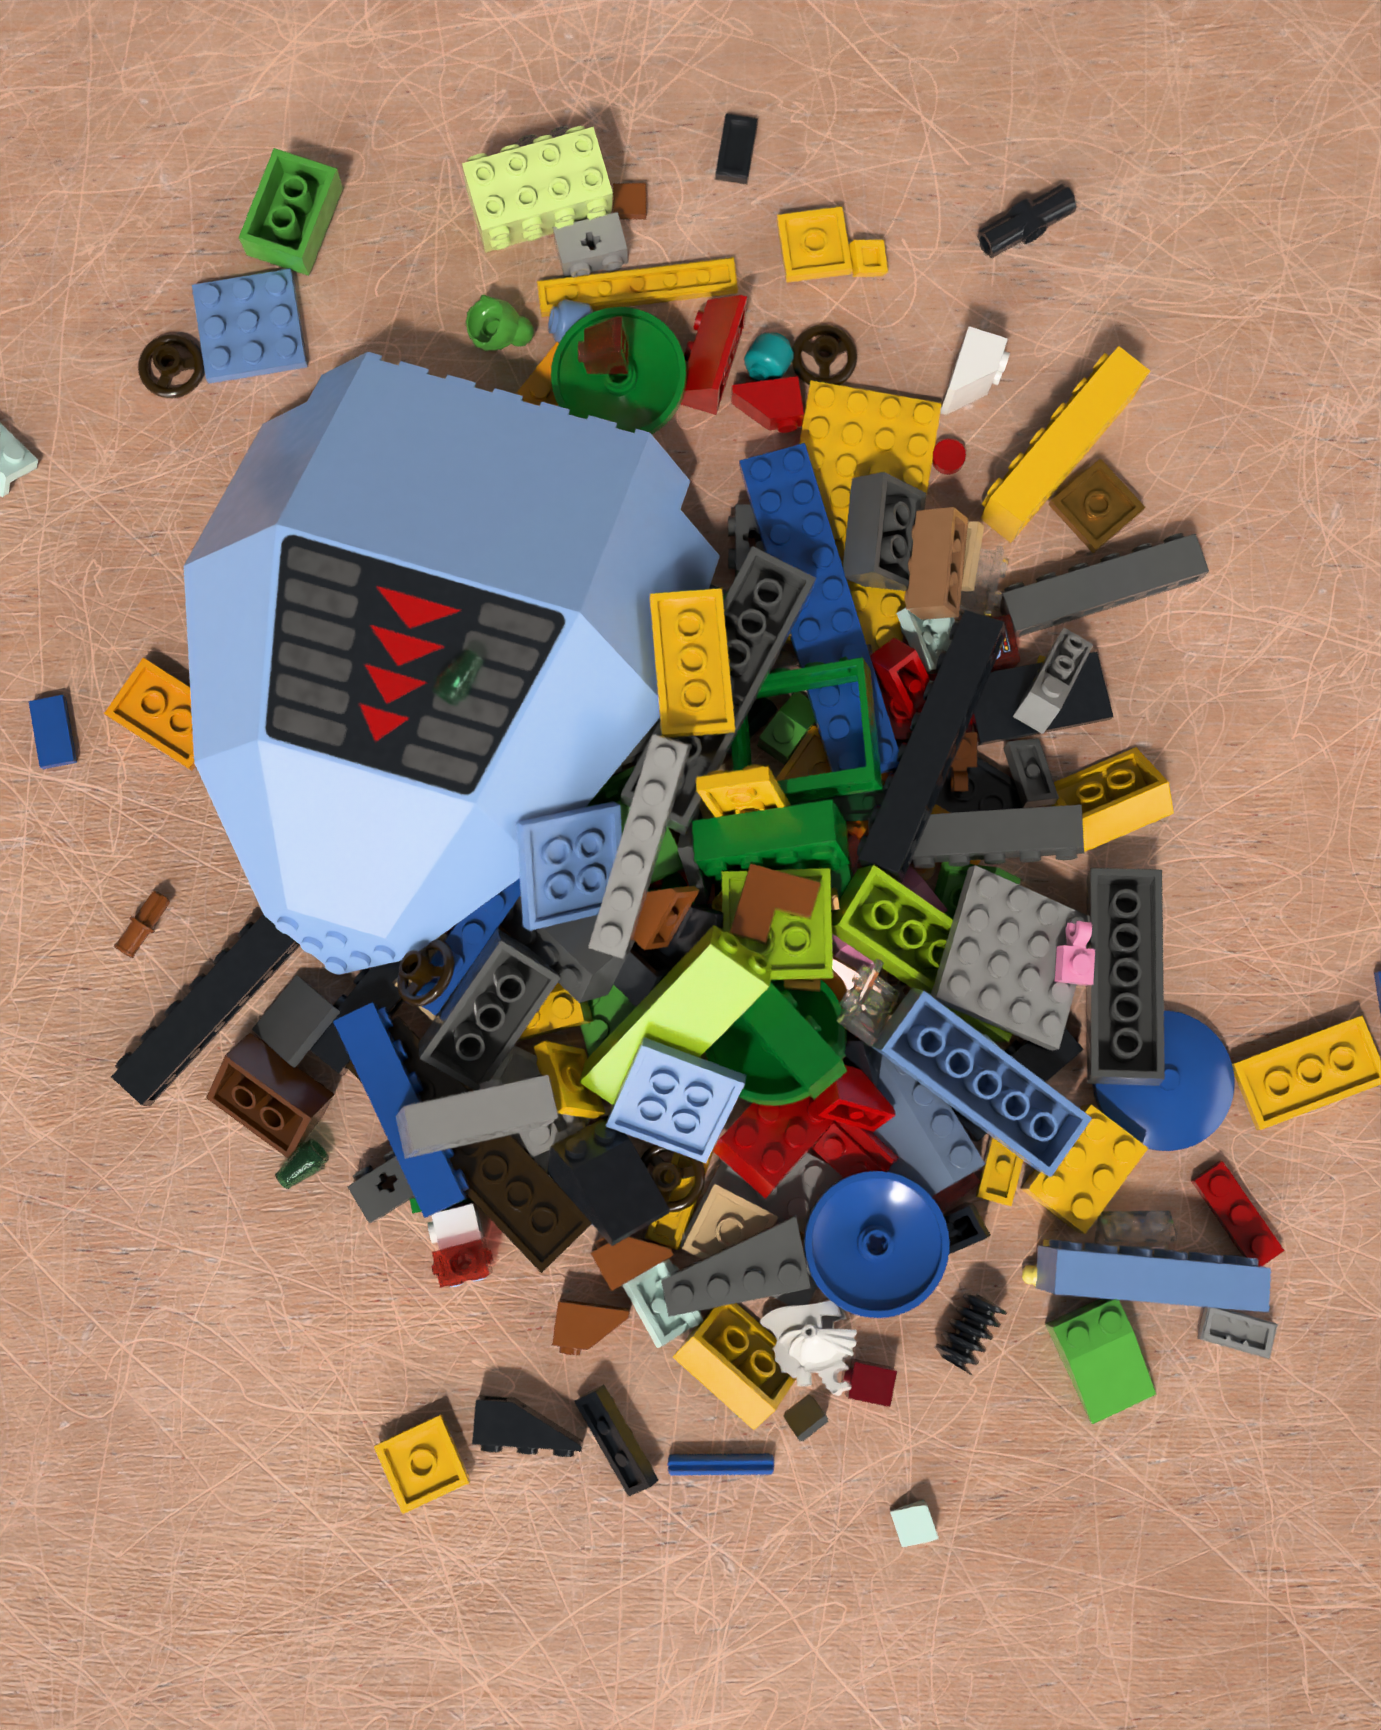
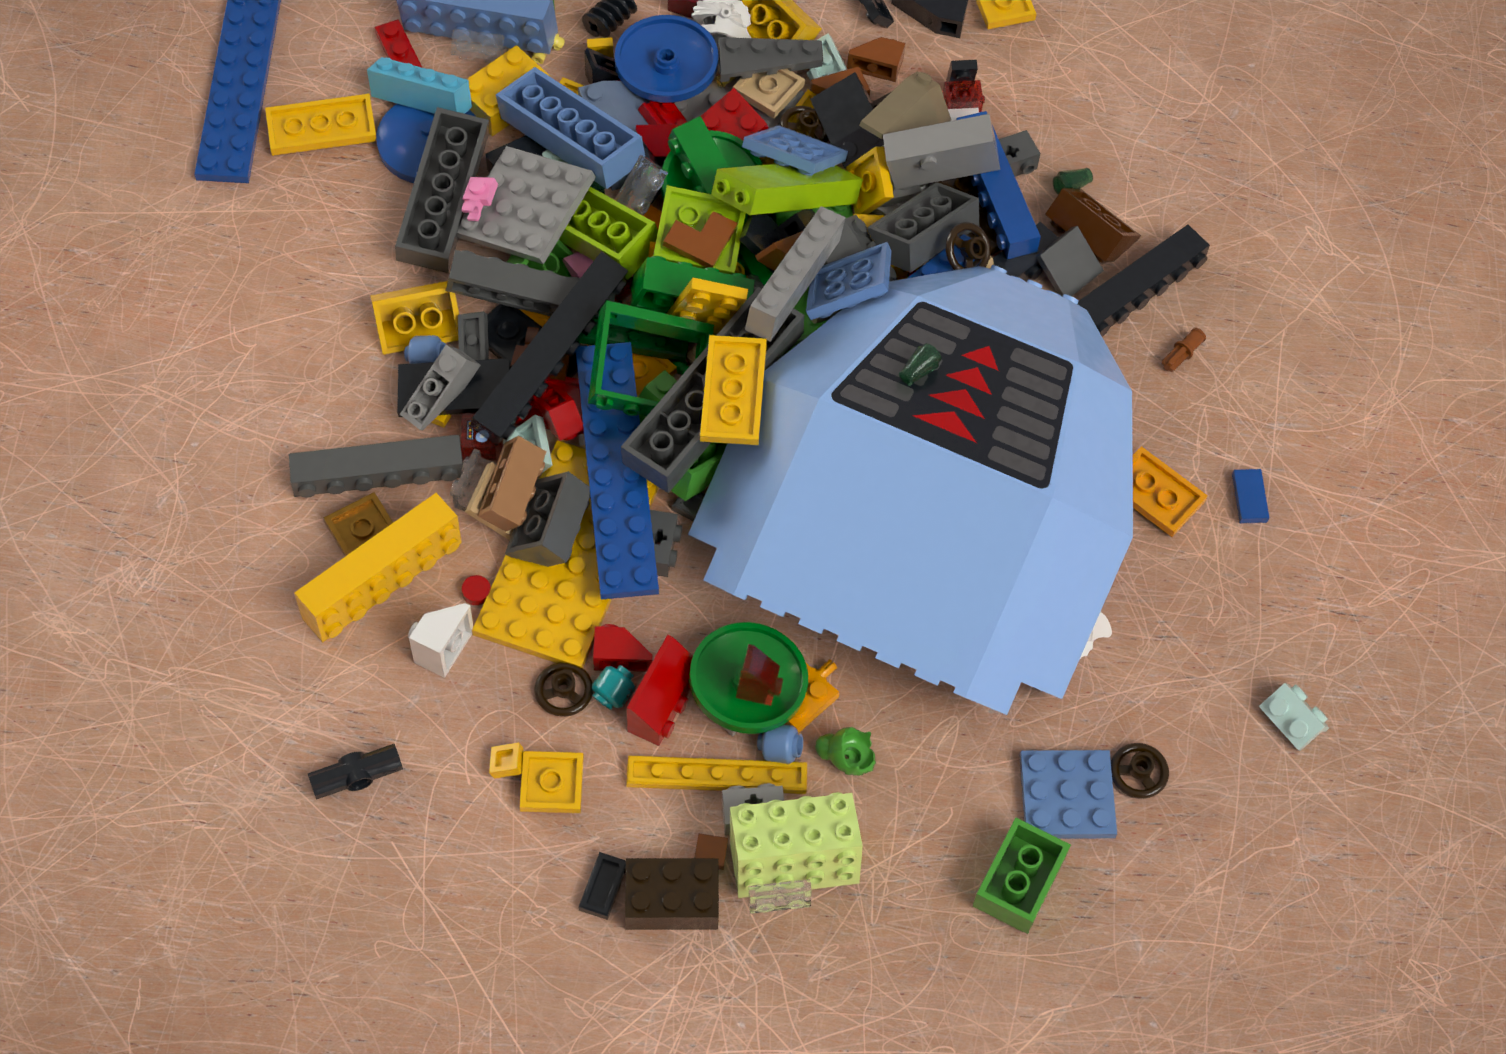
camera: 170 degrees left, 20 degrees down
(467, 1296) = (962, 70): none -> black plate
(527, 1195) = (910, 105): none -> dark tan wedge
(662, 139) = (672, 894): none -> dark brown brick
(971, 1267) = (601, 45): none -> yellow plate
(1084, 747) = (423, 349): none -> medium blue head
(1196, 1136) = (418, 87): none -> medium azure brick

